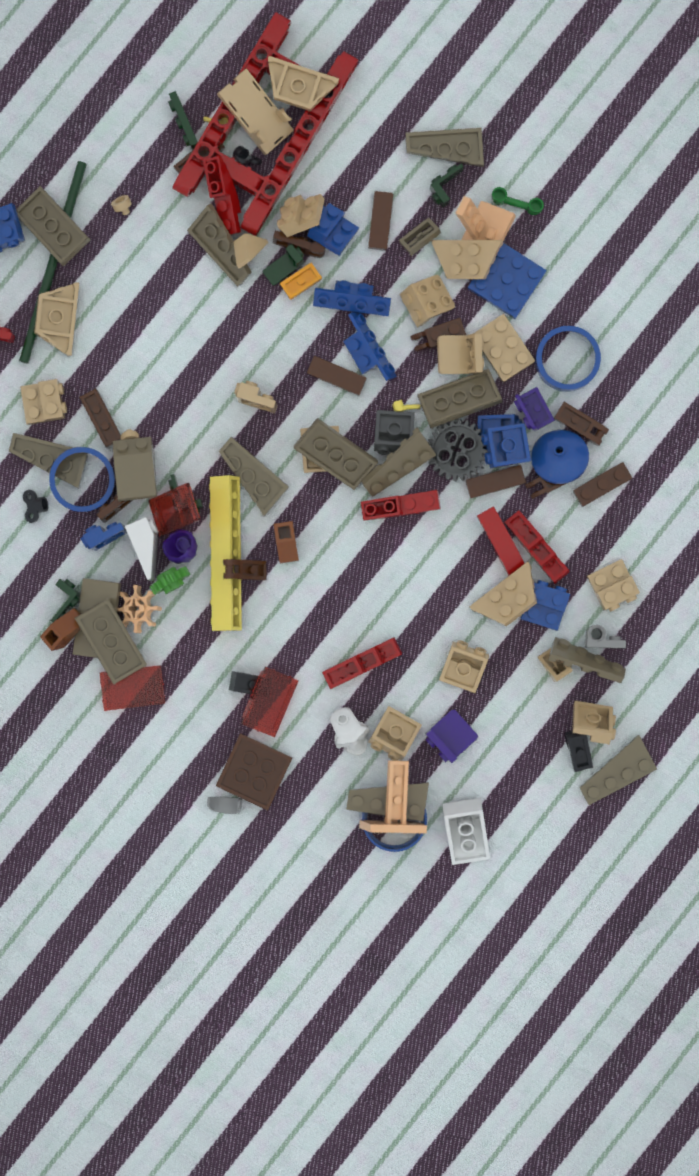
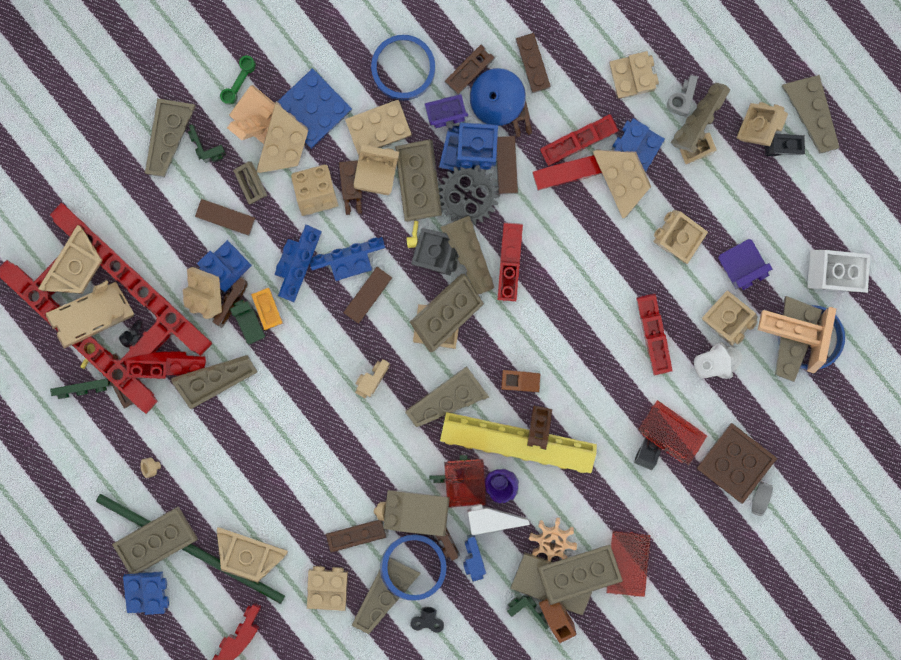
camera: 80 degrees left, 0 degrees up
(170, 580) = (533, 502): bright green gear -> none
(247, 248) = (224, 353): tan slope -> none

